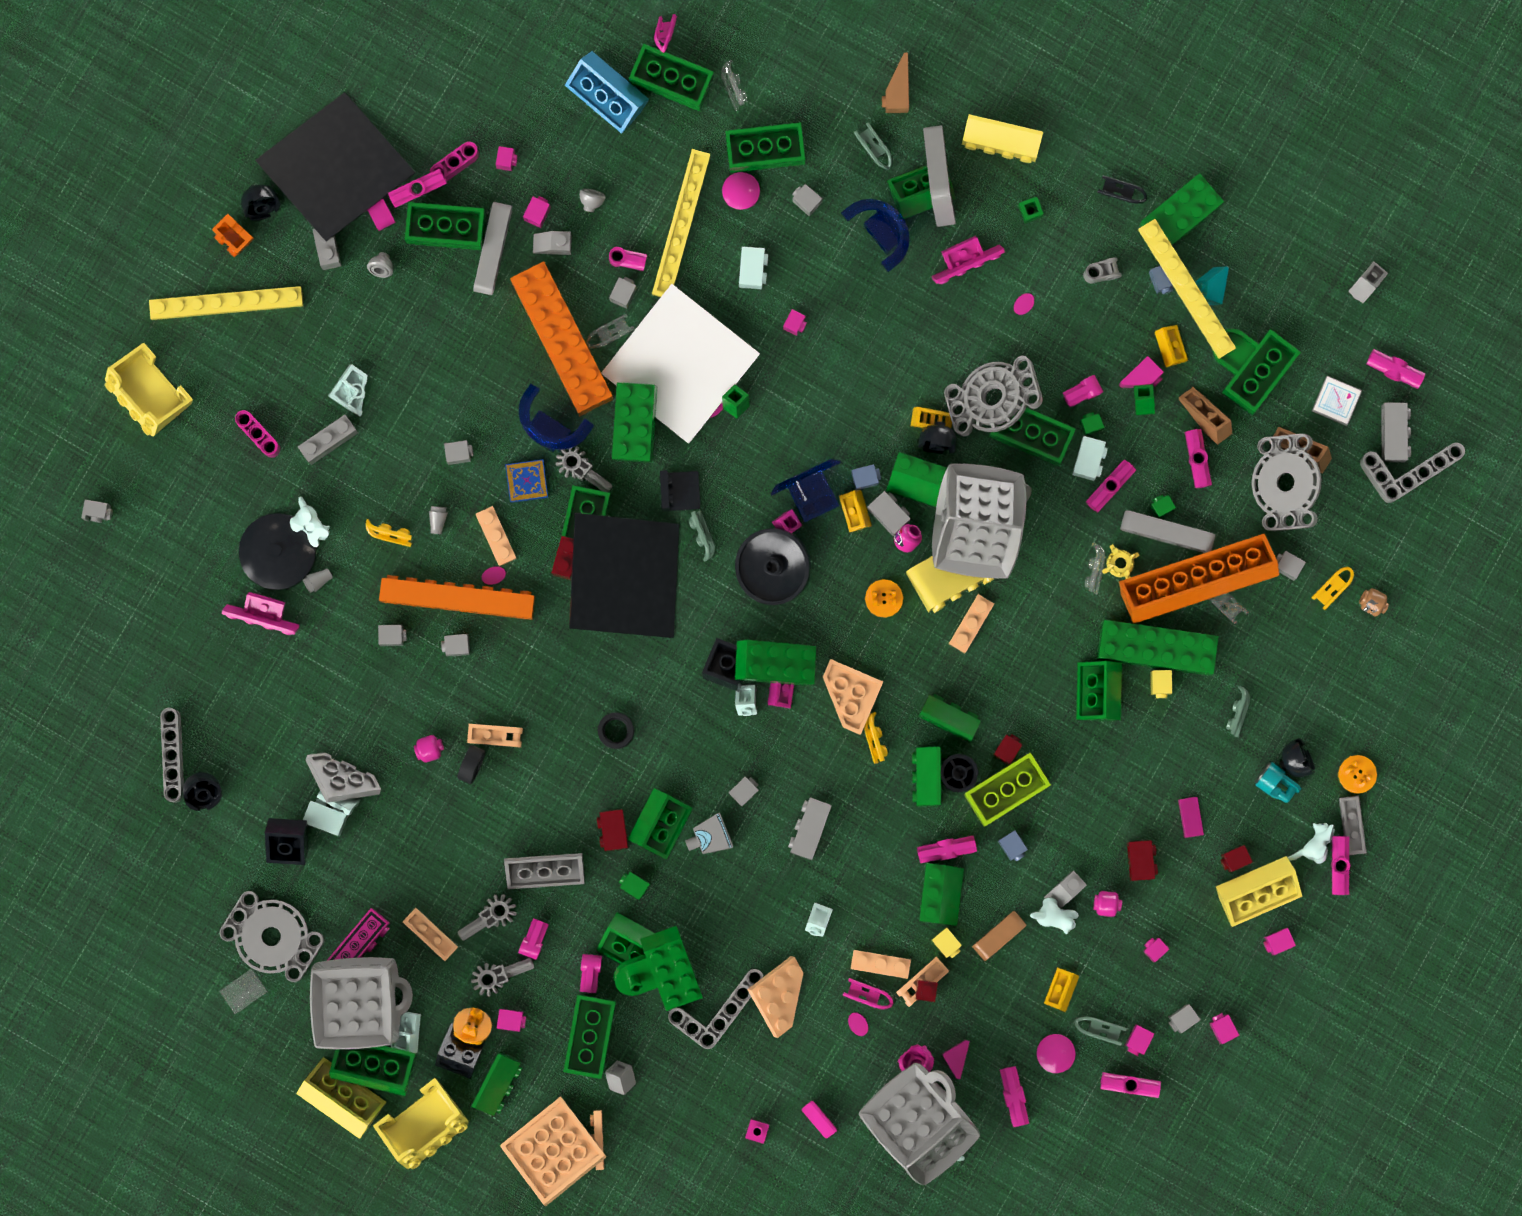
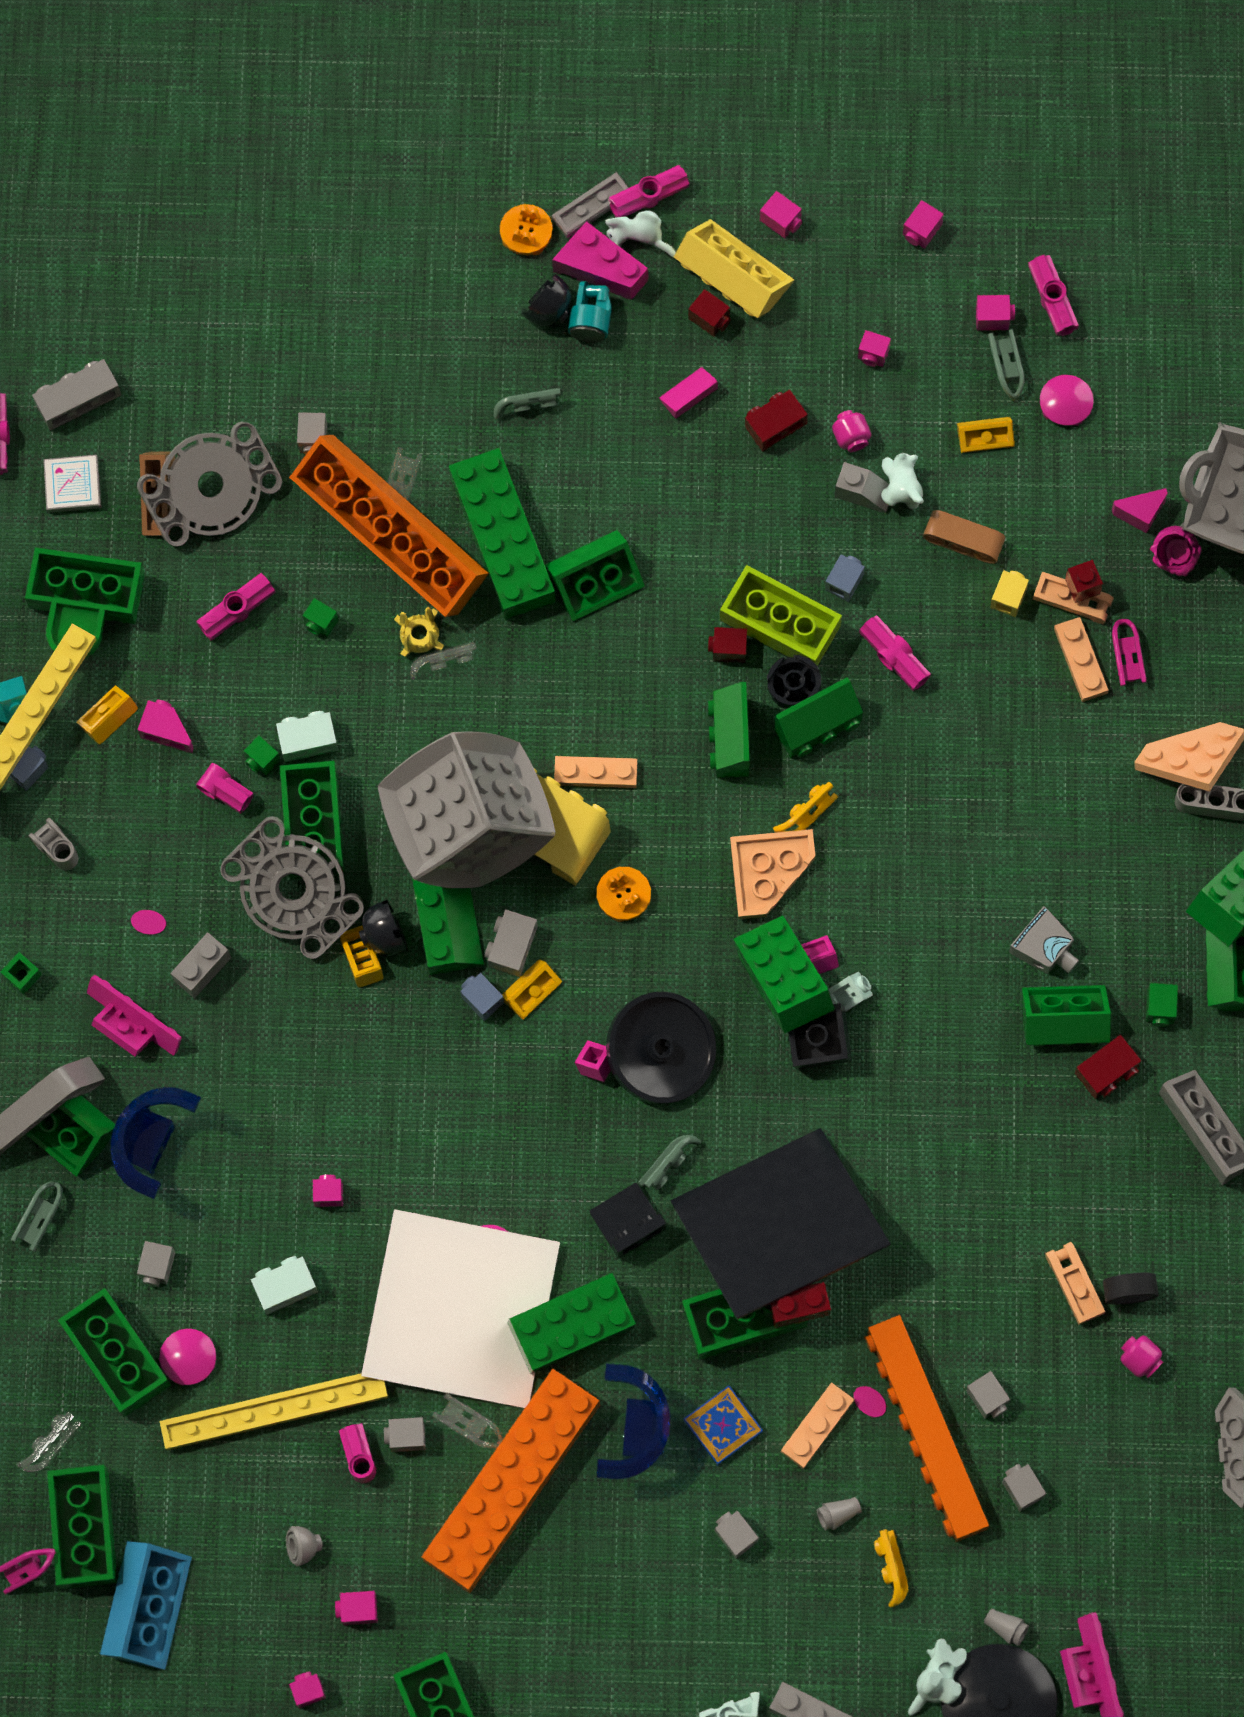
camera: 115 degrees left, 10 degrees down
(492, 248) = (437, 1639): light grey beam -> none
(552, 243) = (389, 1564): light grey slope -> none
(582, 469) = (670, 1358): light grey gear -> none
(615, 716) = (978, 1112): black tyre -> none
(735, 401) = (472, 1209): green brick -> none
(744, 791) = (964, 933): light grey brick -> none
(809, 828) = (965, 828): light grey brick -> none
(811, 491) = (538, 1051): clear blue piece -> none
(818, 920) = (1071, 759): light aqua bracket -> none
(858, 1024) = (1169, 648): dark pink sticker -> none
(907, 538) = (531, 900): dark pink head -> none
(941, 894) = (955, 632): green slope -> none
(977, 319) = (200, 965): none -> light grey brick
(1014, 1096) = (1147, 419): dark pink piece -> none
(1118, 477) = (311, 688): dark pink piece -> none
(1144, 399) = (196, 706): green brick -> none
(1161, 683) = (543, 507): light yellow brick -> none
(1167, 532) = (349, 596): light grey beam -> none
(1183, 1019) = (938, 275): light grey brick -> none
(1206, 415) = (174, 625): medium nougat slope -> none
(1308, 807) = (600, 261): none -> dark pink wedge
(1336, 584) = (304, 368): yellow piece -> none
(1374, 602) = (304, 313): medium nougat head -> none
(1413, 475) = (118, 348): light grey beam -> none

